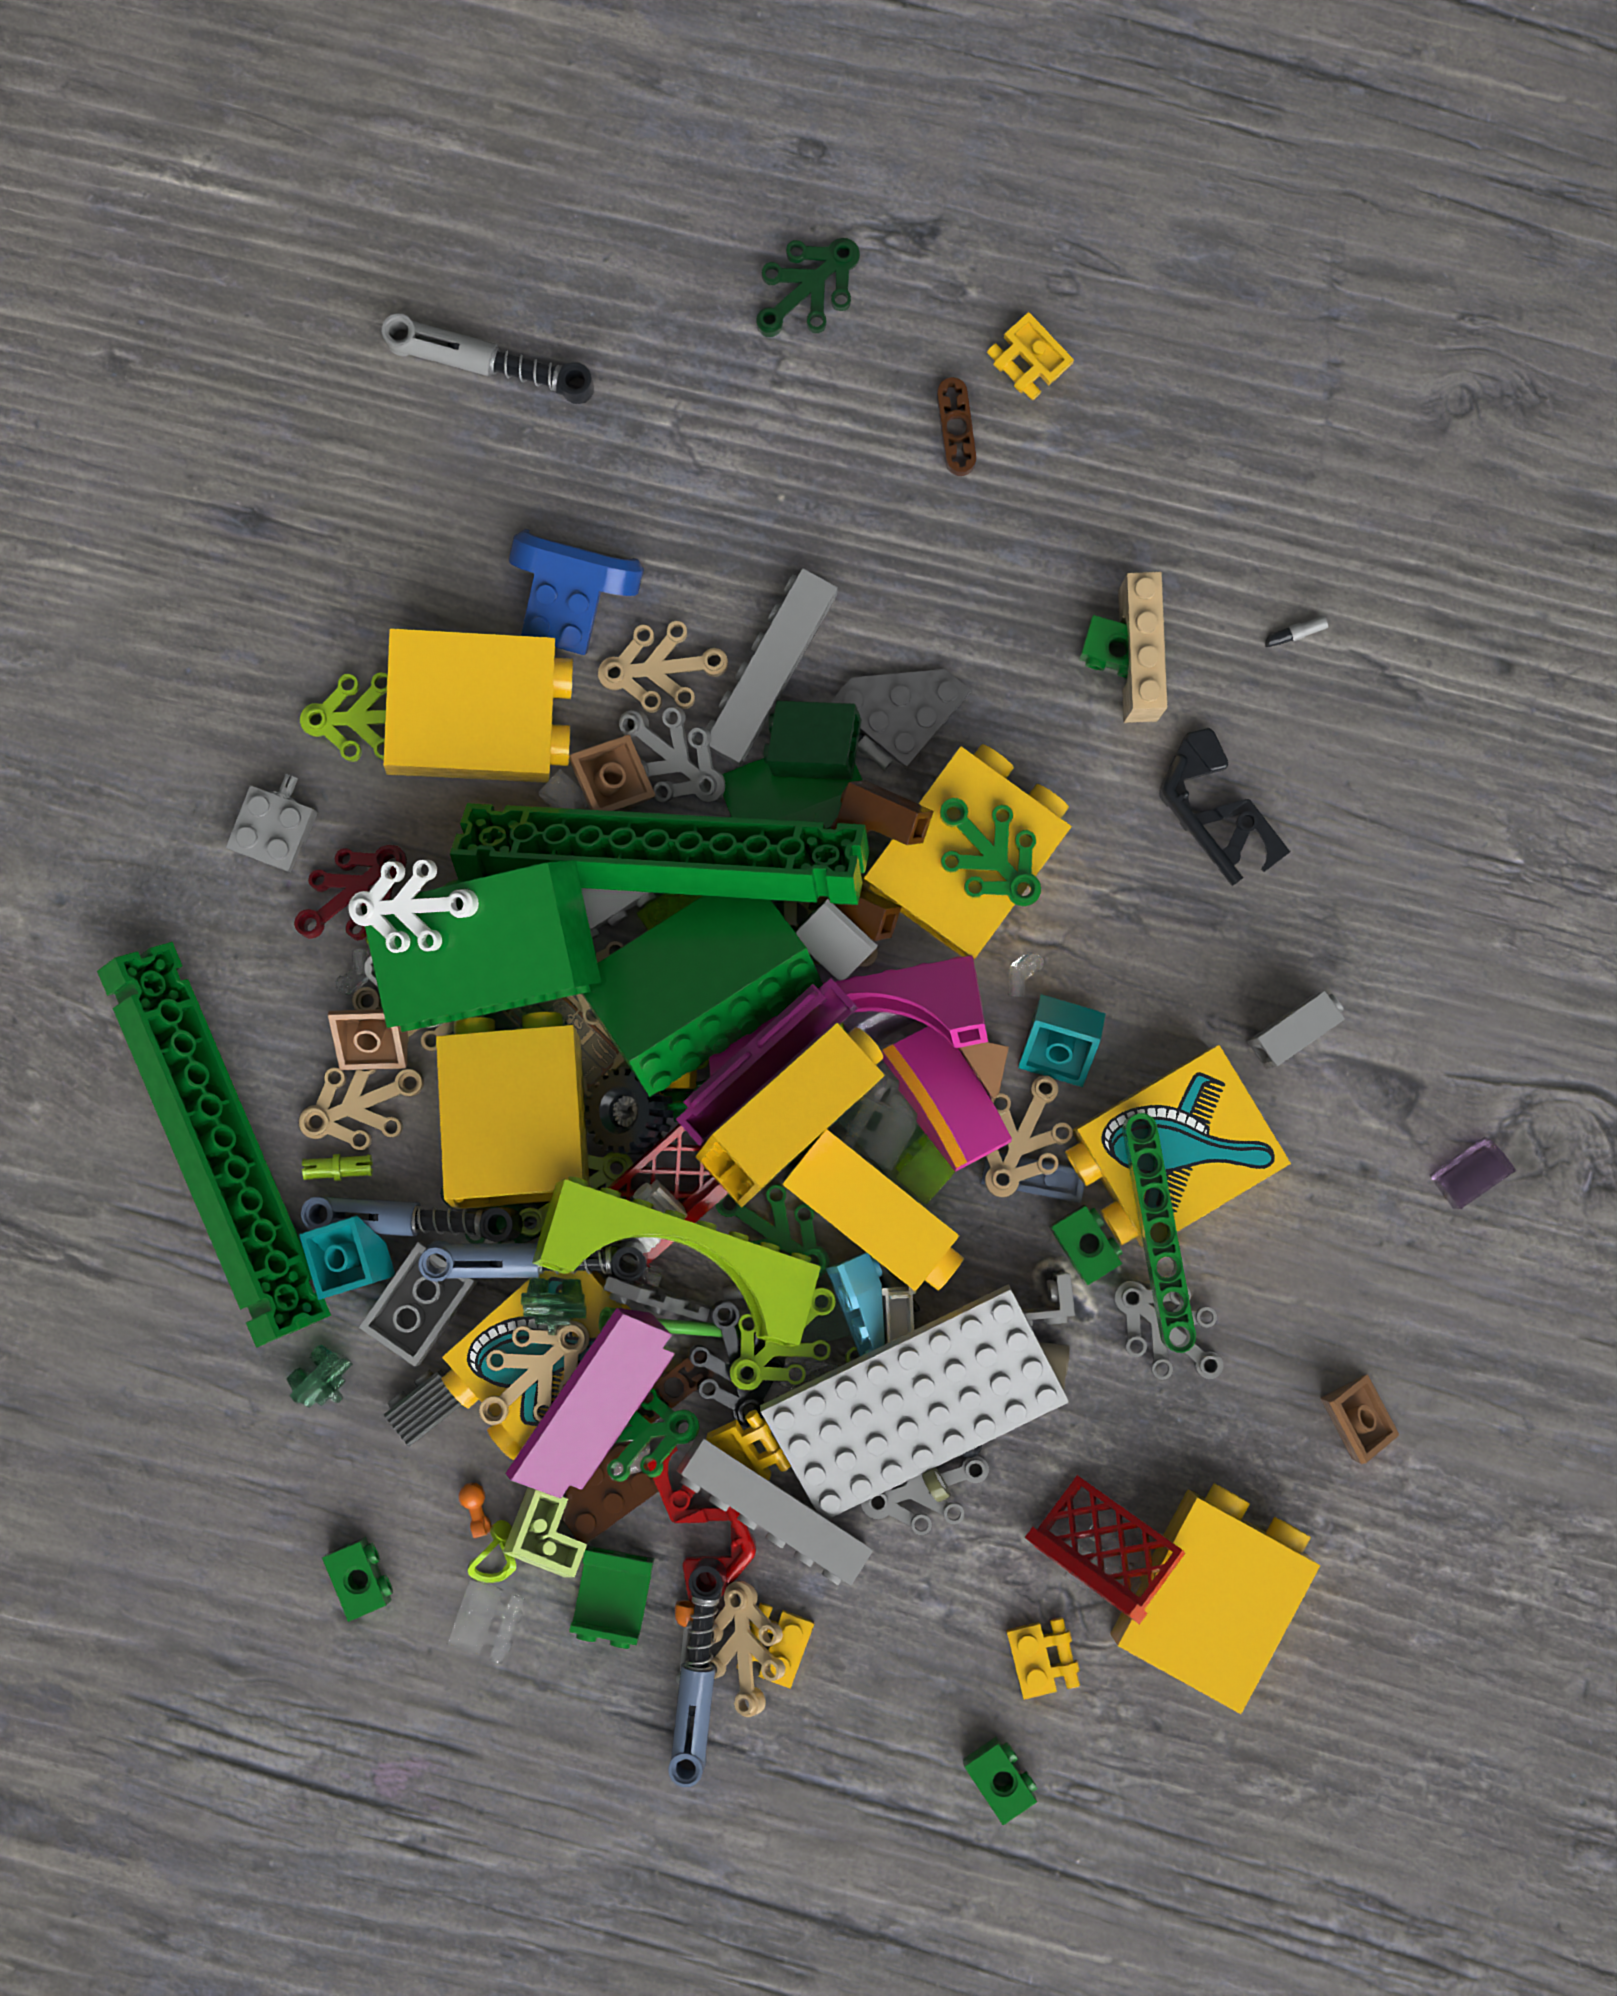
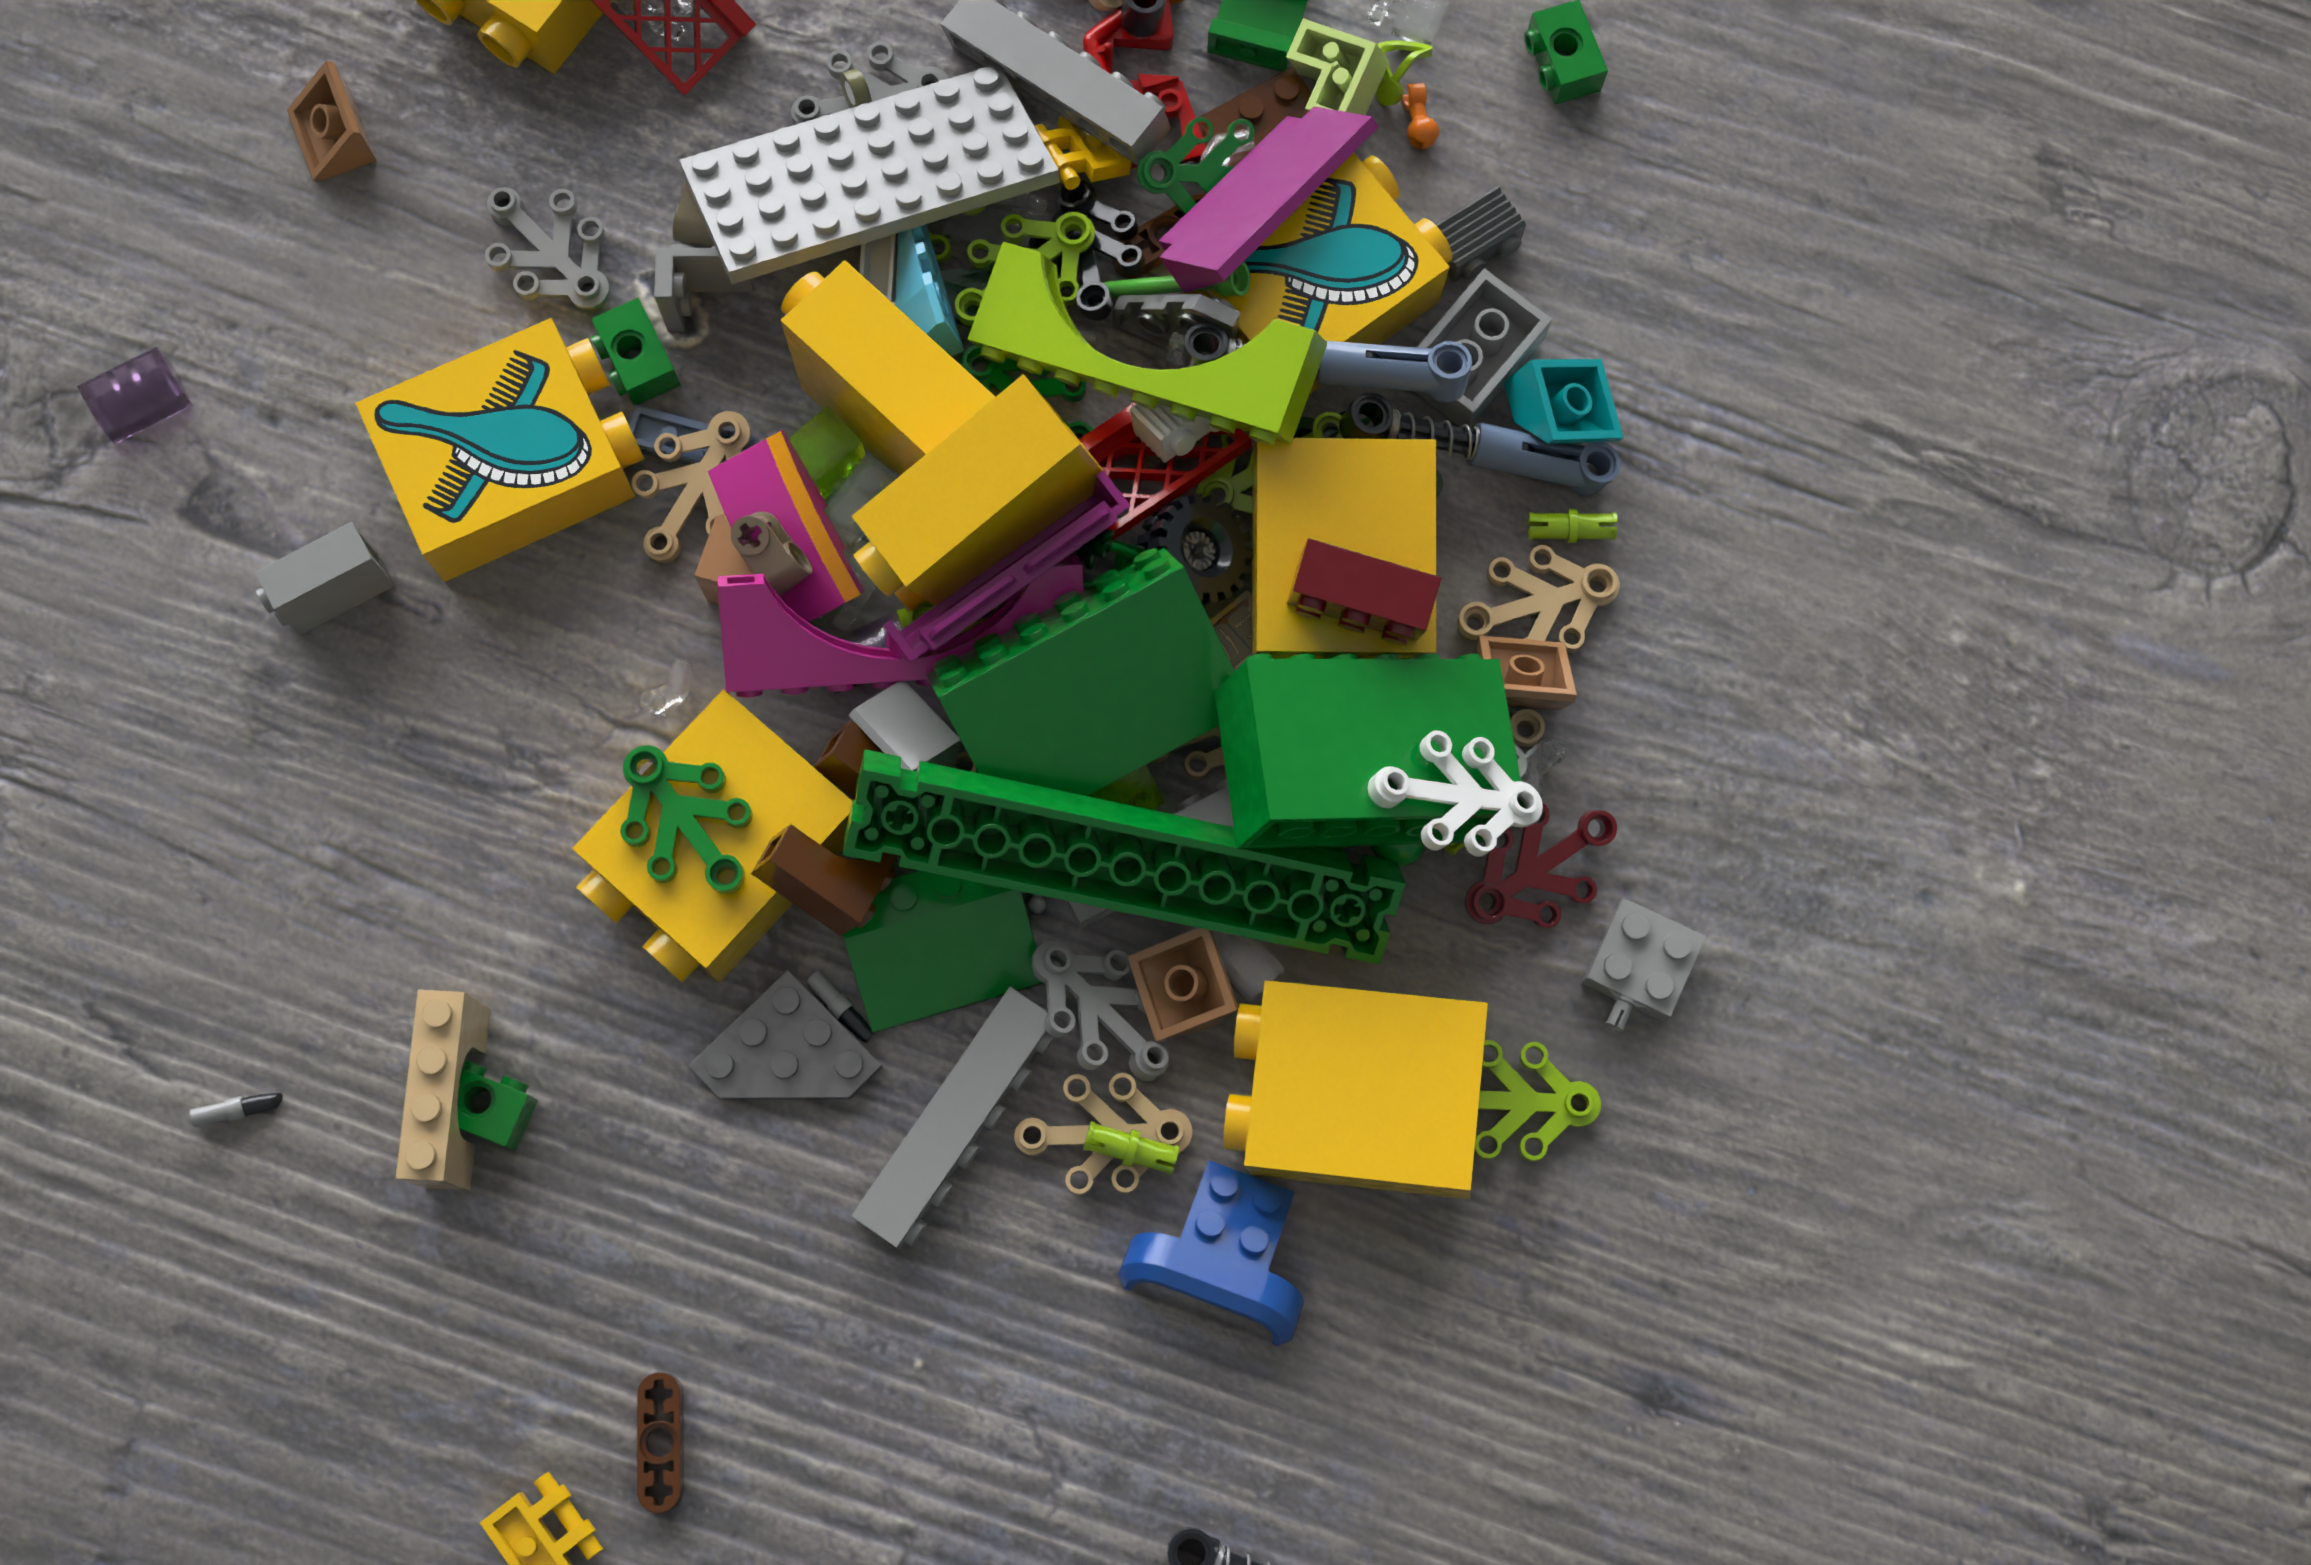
camera: 175 degrees right, 10 degrees down
(213, 1142) = (1731, 563): green brick -> none
(323, 1381) = (1619, 269): clear green hips -> none
(492, 1063) = (1363, 592): none -> dark red brick
(539, 1368) = (1331, 240): tan plant -> none
(554, 1308) = (1324, 312): clear green hips -> none
(640, 654) = (1131, 1148): none -> lime pin
(813, 740) = (907, 1008): dark green brick -> none
(952, 1070) = (772, 553): none -> dark tan piece
(1062, 1040) = (628, 600): teal slope -> none
(1169, 1246) = (539, 346): green beam -> none
(1203, 755) = (394, 951): black piece -> none

